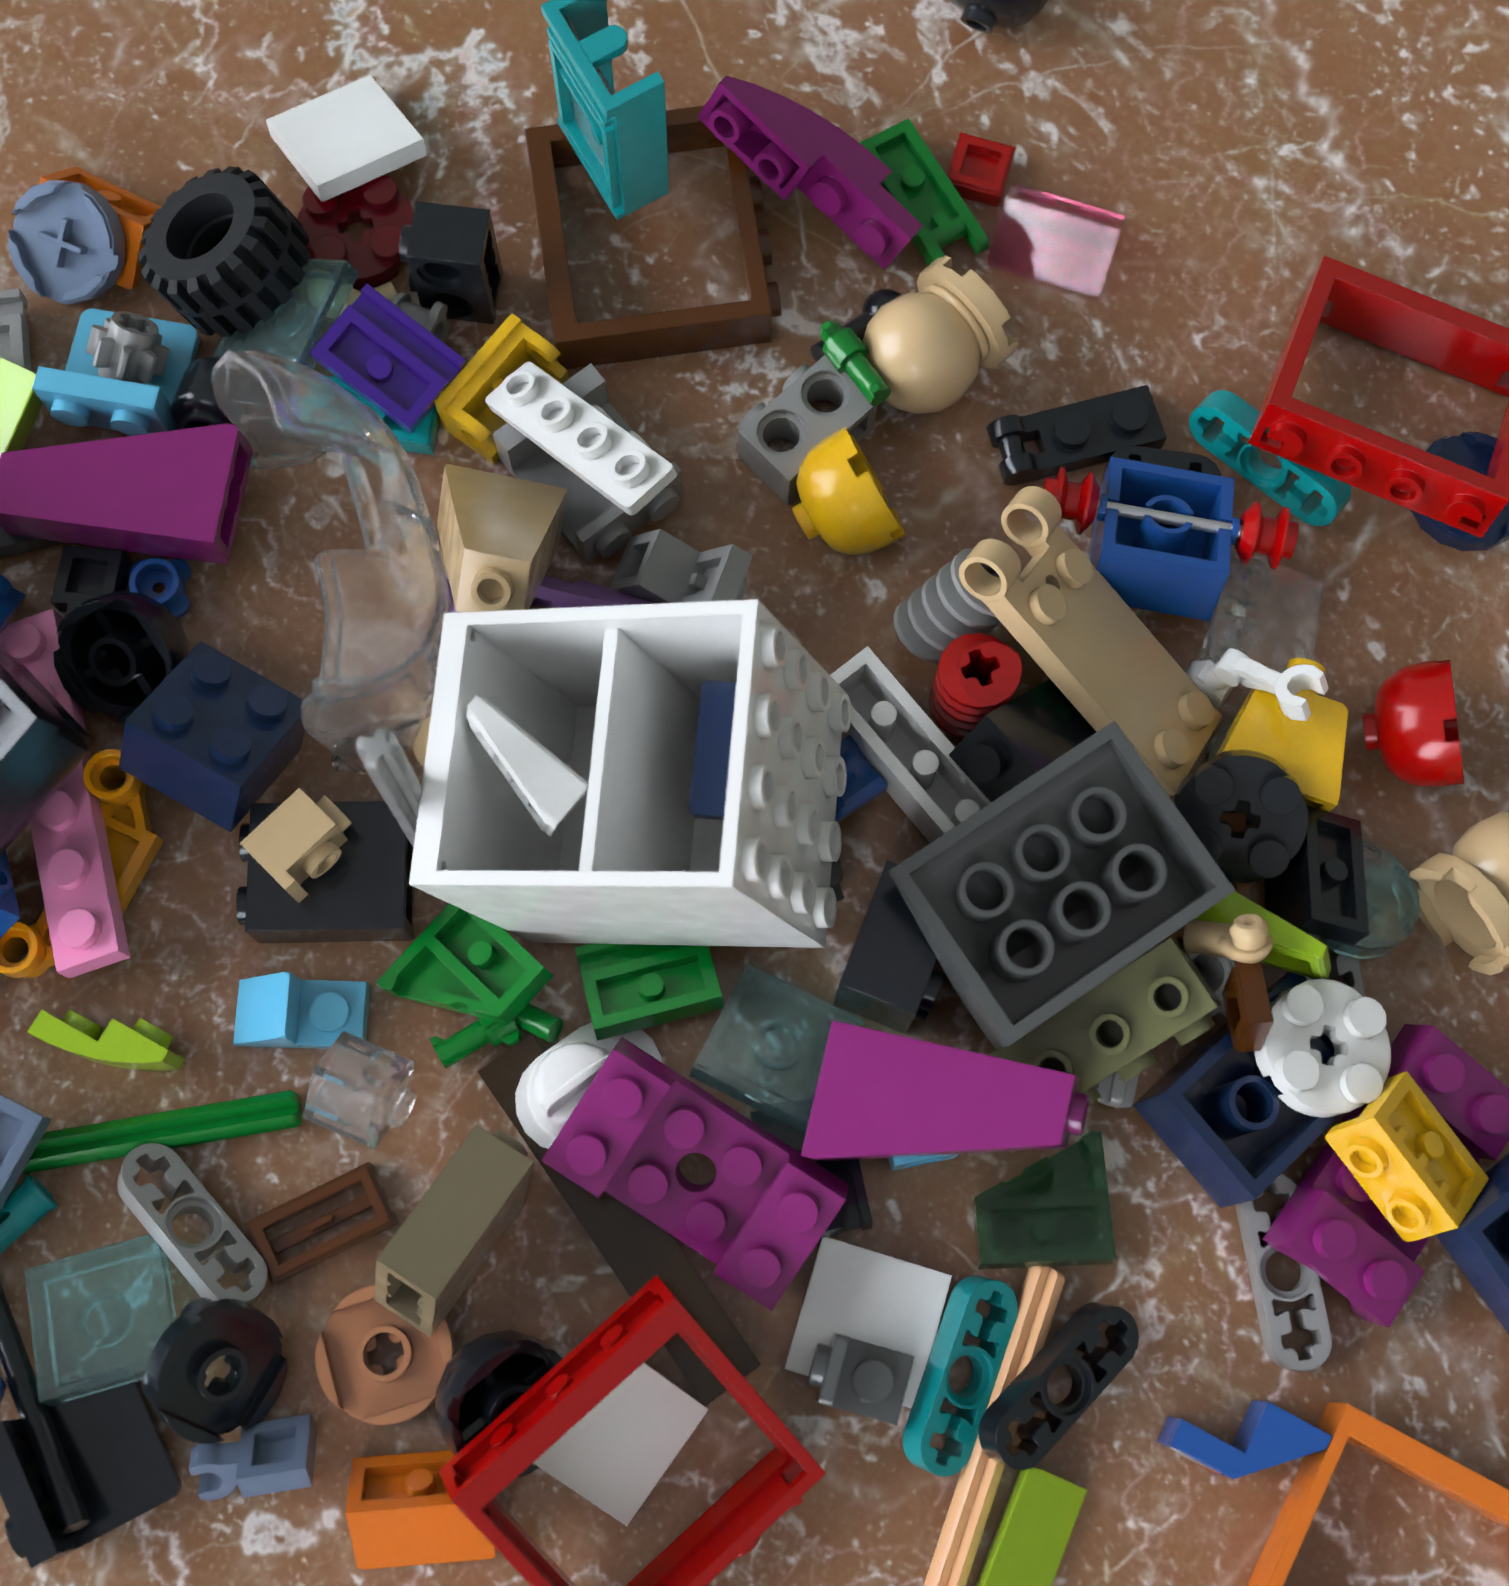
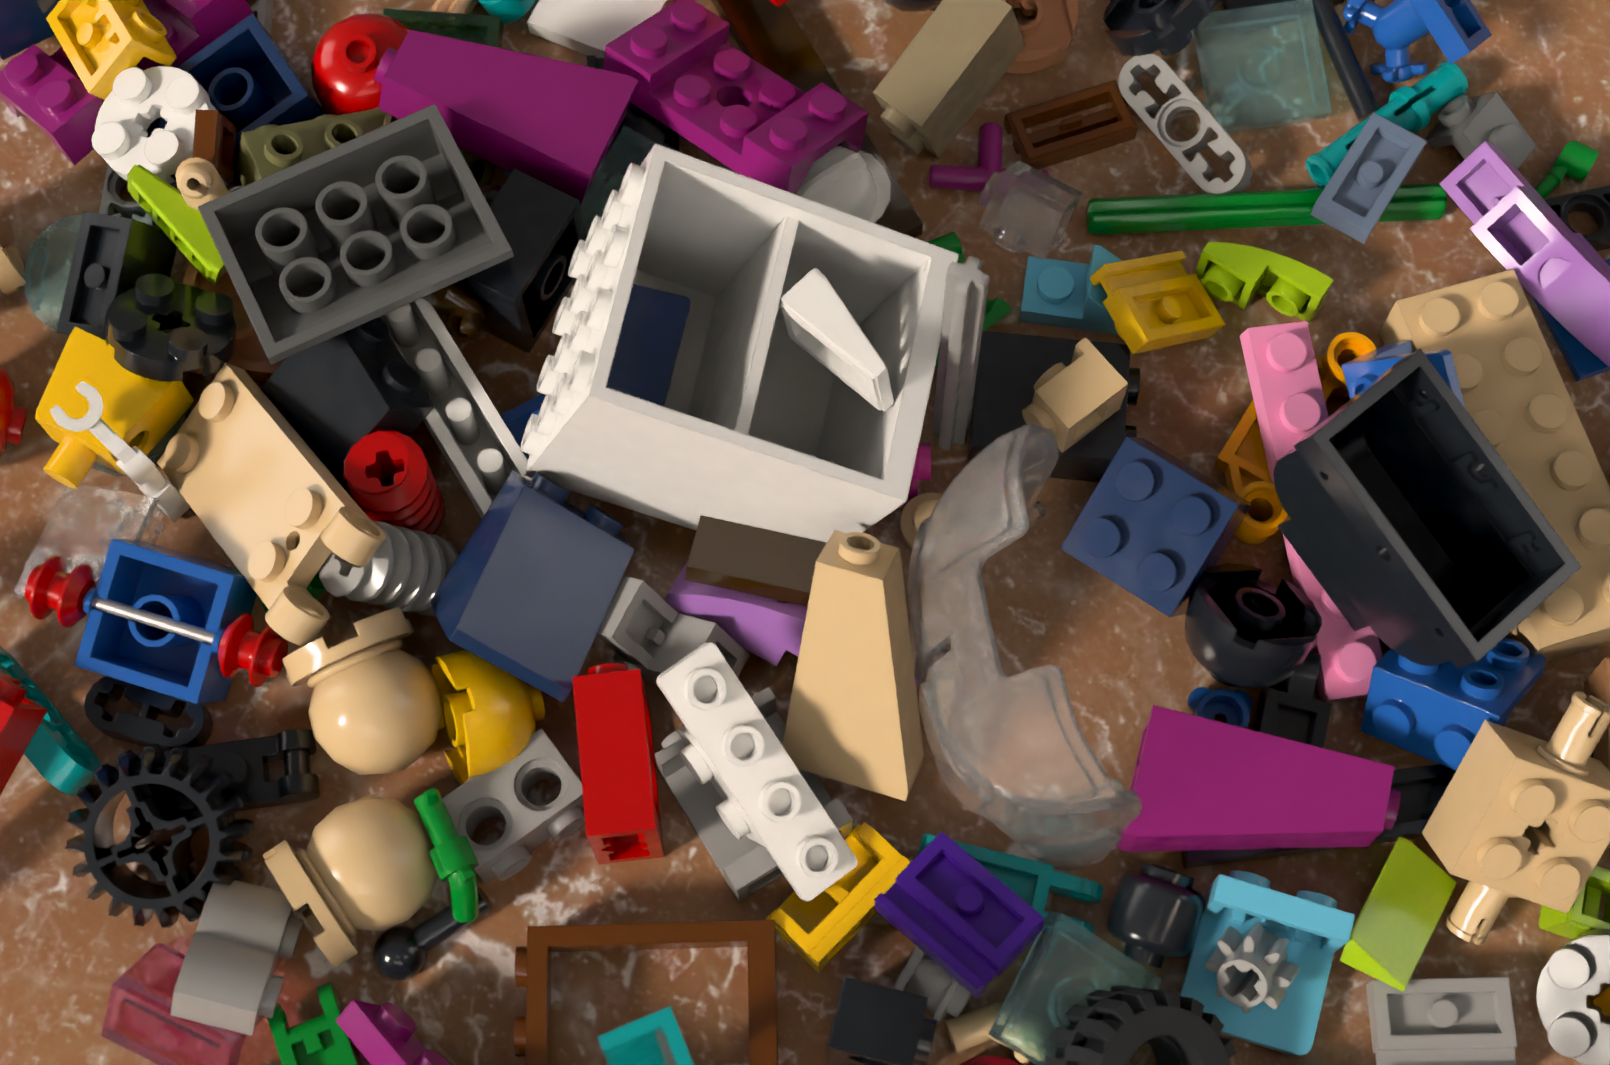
camera: 170 degrees left, 5 degrees down
(218, 992) = (1157, 302): none -> yellow plate
(409, 1149) = (972, 177): none -> magenta piece
(712, 452) = (617, 764): none -> red window
(828, 571) = (534, 583): none -> dark blue slope
(952, 488) = (369, 699): none -> tan tile
(1024, 263) = (234, 956): none -> light grey brick
(1113, 1172) = (348, 60): none -> red cylinder
(1115, 356) = (154, 811): none -> black gear

